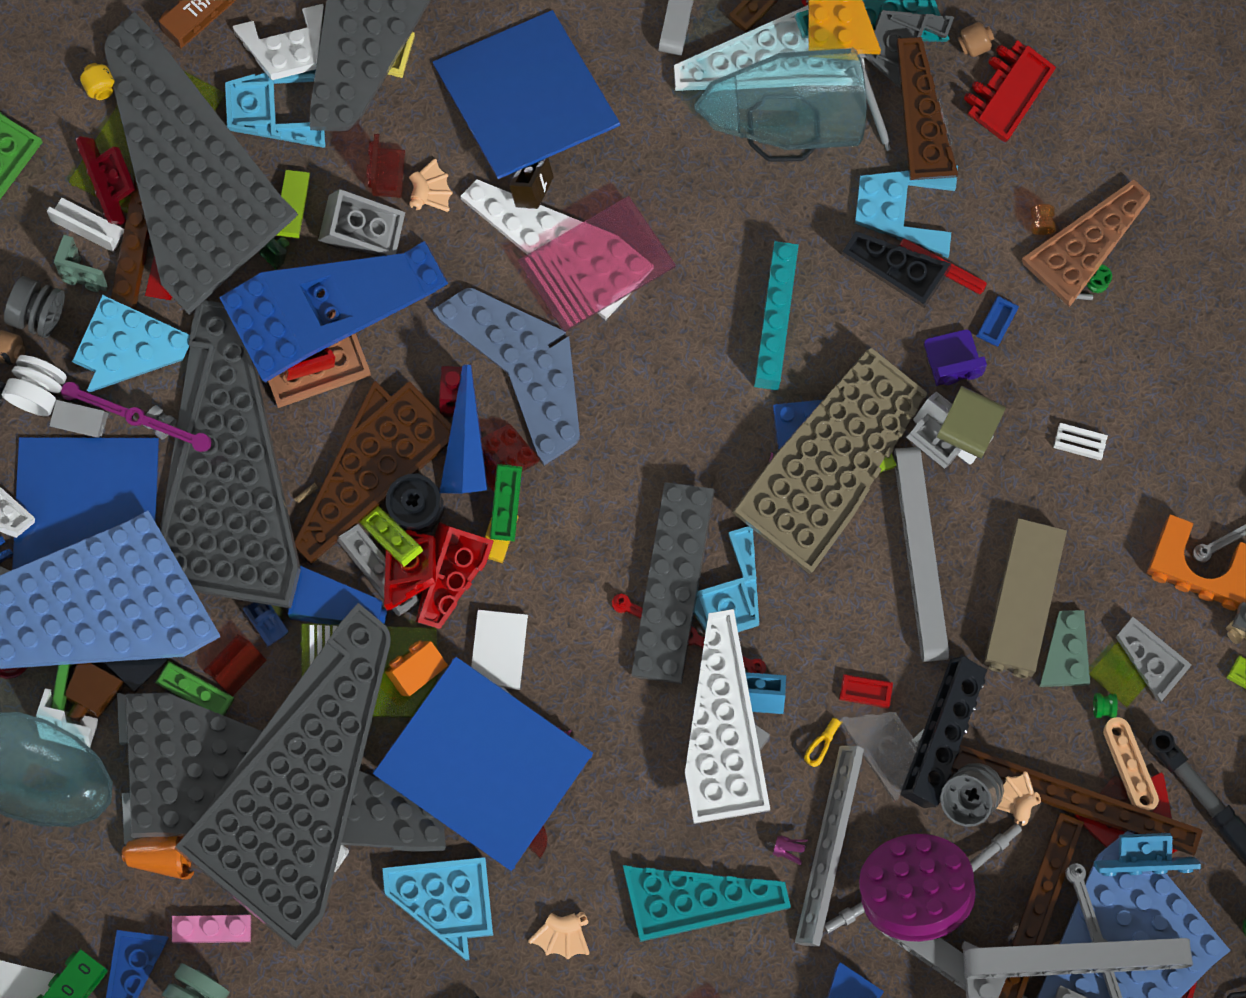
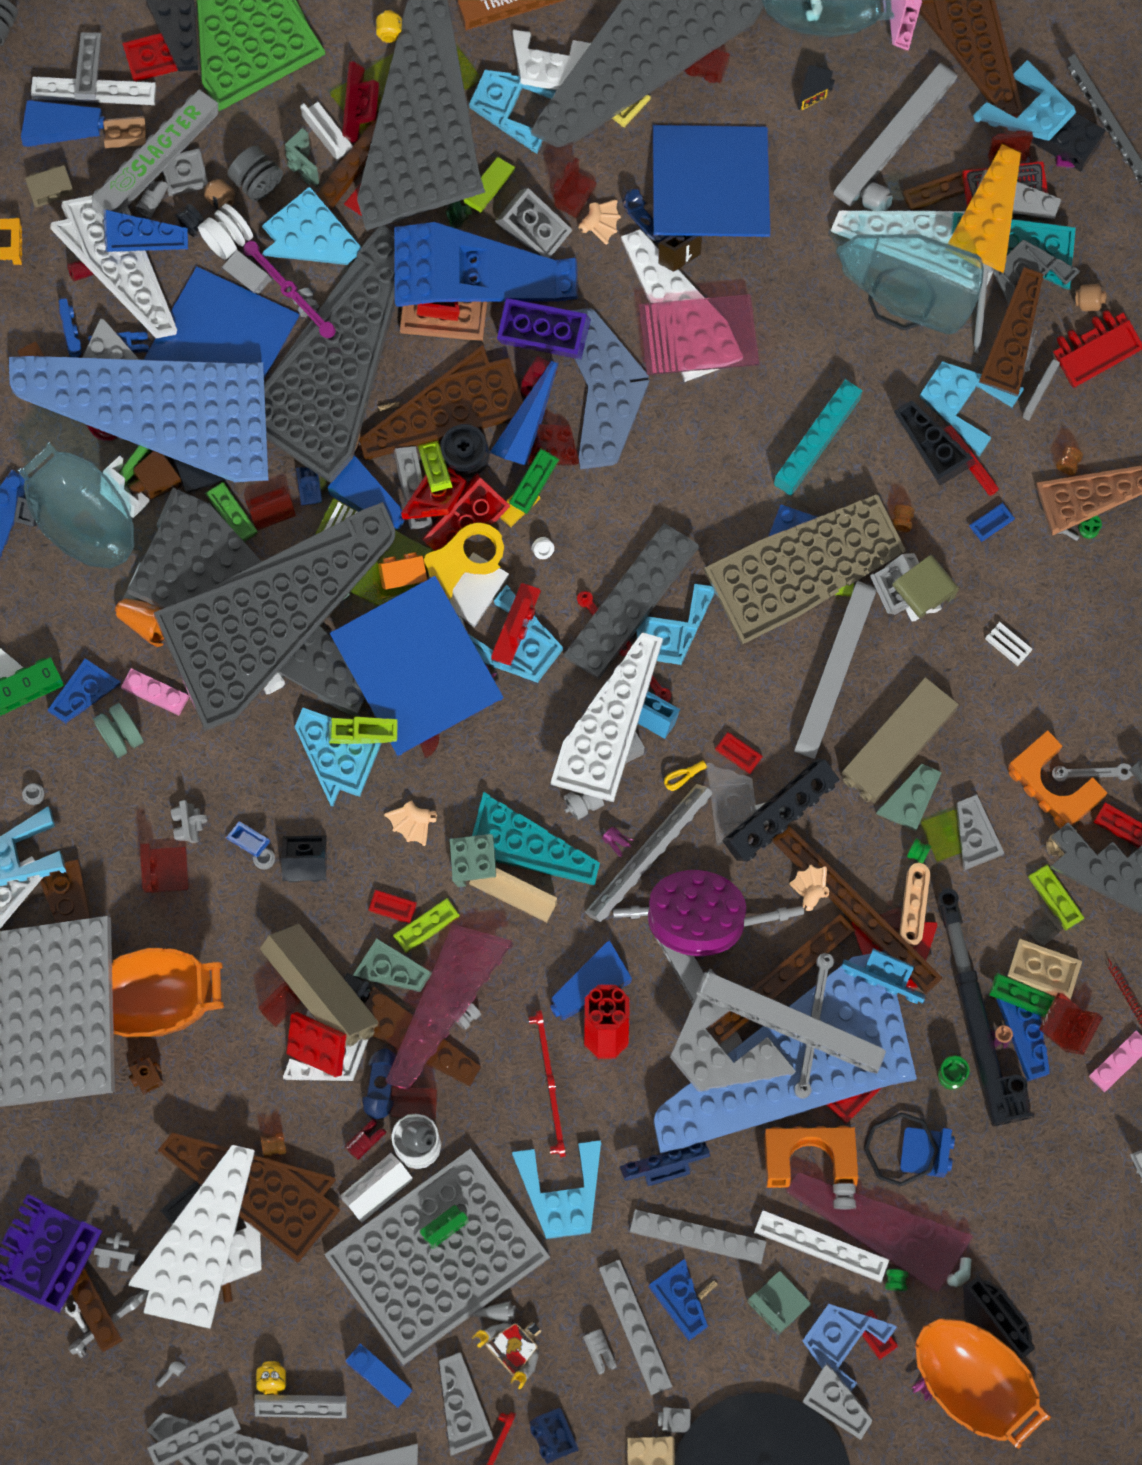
camera: 30 degrees right, 0 degrees up
(432, 333) = (543, 328): none -> dark purple brick
(457, 157) = (634, 208): none -> dark blue piece
(462, 863) = (362, 730): none -> lime slope
(464, 633) = (451, 562): none -> yellow animal
(549, 569) = (543, 548): none -> white tile
(565, 666) = (516, 624): none -> red bracket
(595, 685) = (534, 653): none -> medium azure wing
(651, 945) = (472, 858): none -> sand green bracket
(705, 34) = (876, 197): none -> light grey head
(709, 958) = (518, 894): none -> tan panel
(732, 829) = (580, 803): none -> light grey wheel
(906, 359) = (902, 519): none -> clear orange wheel
(954, 358) = (941, 533): dark purple bracket -> none
(960, 800) = (776, 865): dark grey wheel -> none
(975, 179) = (1040, 390): none -> light grey tile

